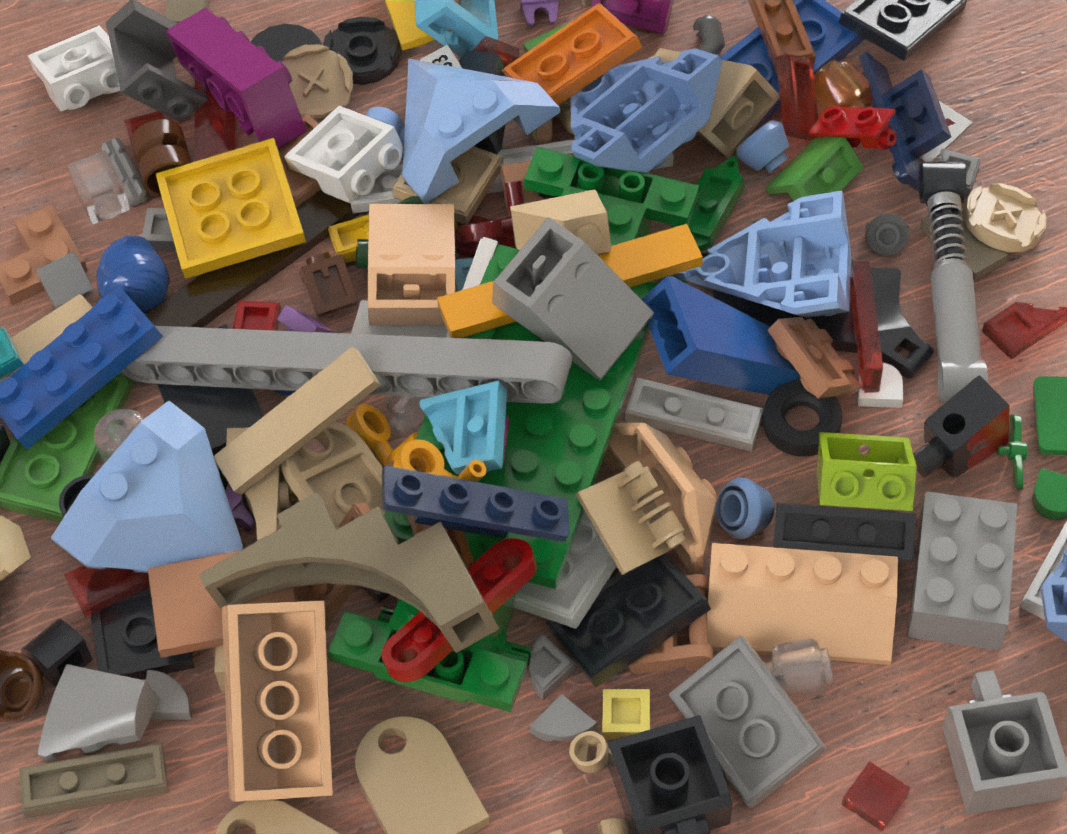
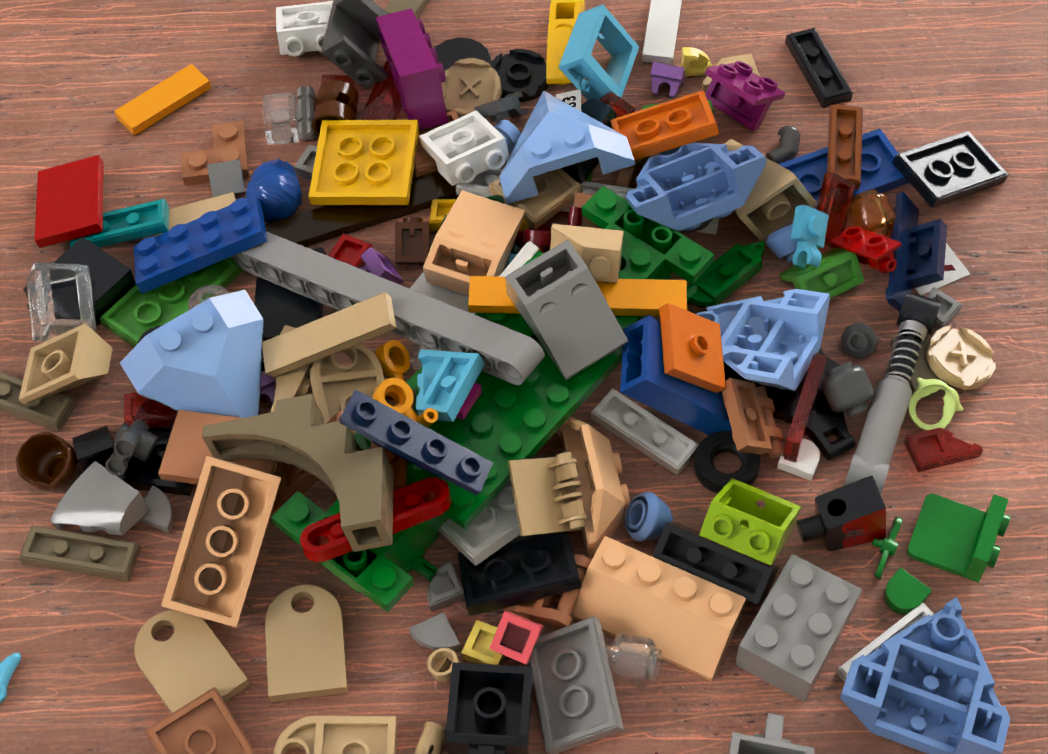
camera: 20 degrees right, 0 degrees up
(106, 627) = (130, 443): none -> dark grey plate
(366, 93) = (502, 108): none -> dark grey plate
(665, 689) = (516, 637): none -> coral brick
(725, 298) = (692, 348): none -> orange plate
(786, 129) = (809, 233): none -> medium azure plate
(903, 291) = (847, 388): none -> dark grey head
(1015, 268) = (924, 389): none -> yellowish green piece

